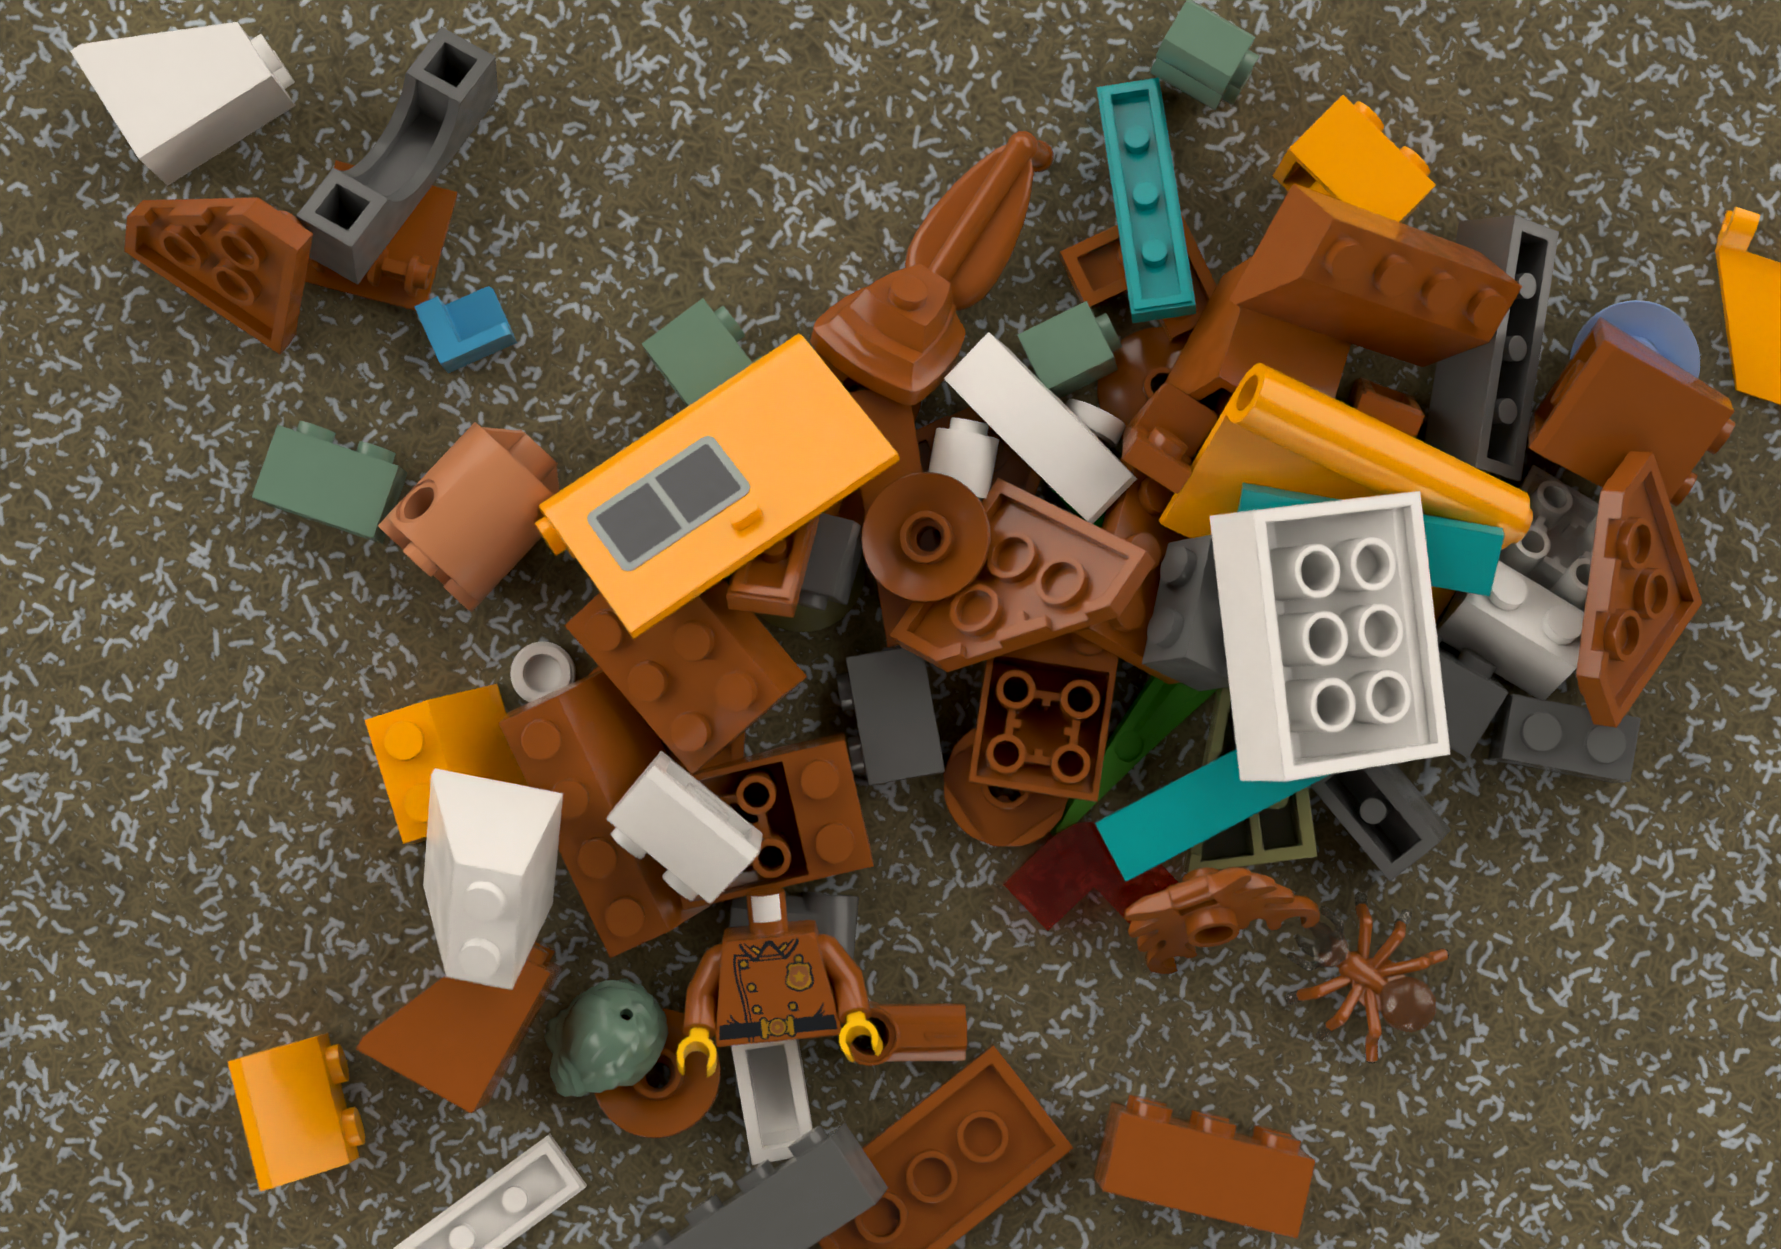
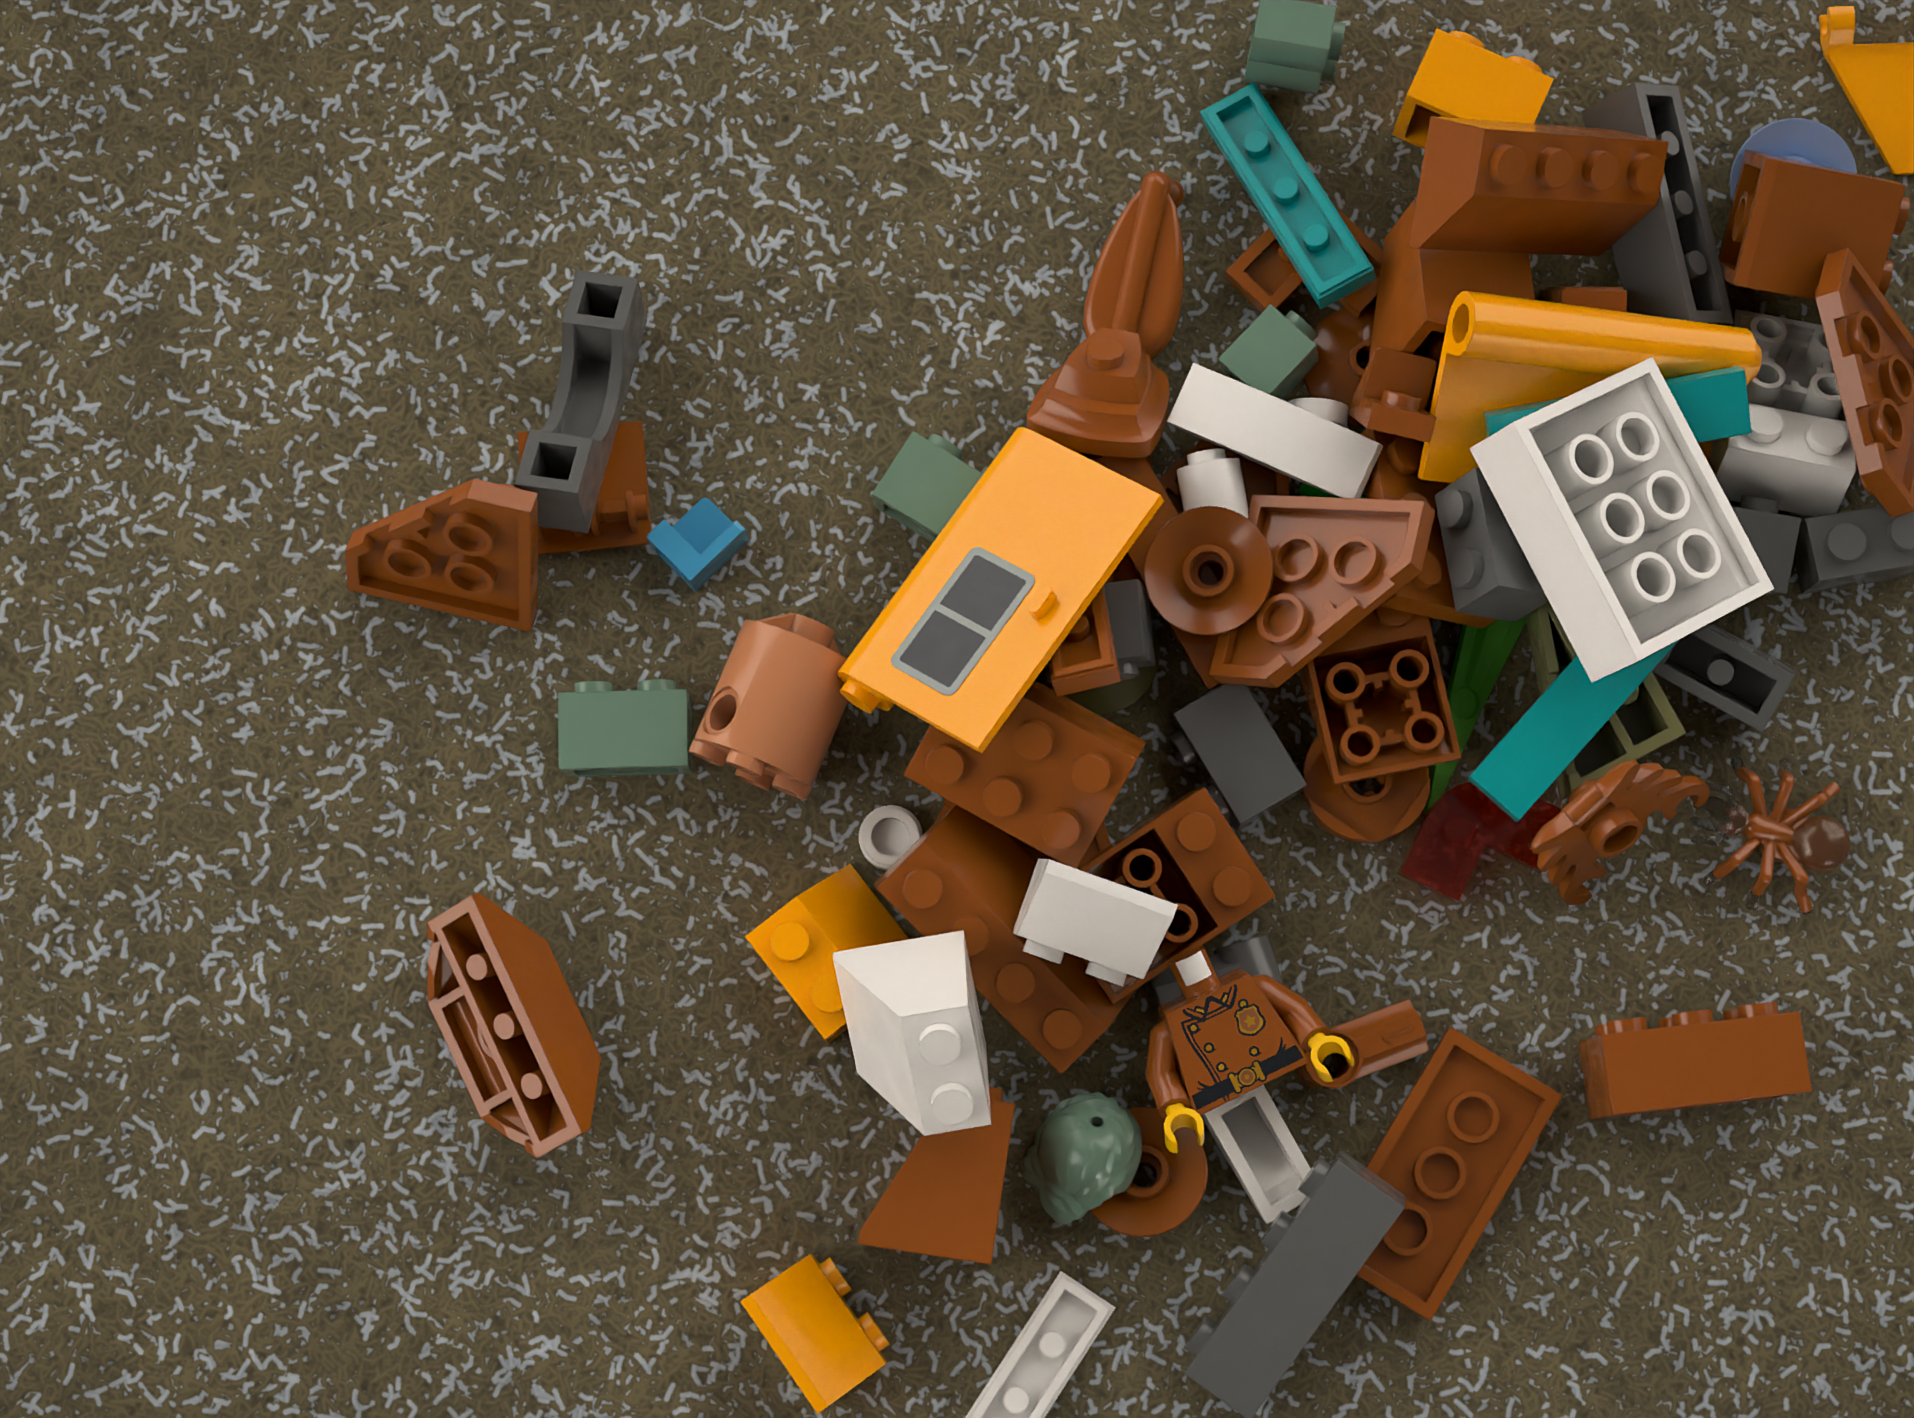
camera: 15 degrees left, 5 degrees down
(124, 721) = (511, 1025): none -> dark orange wedge
(187, 91) = (359, 414): white slope -> none

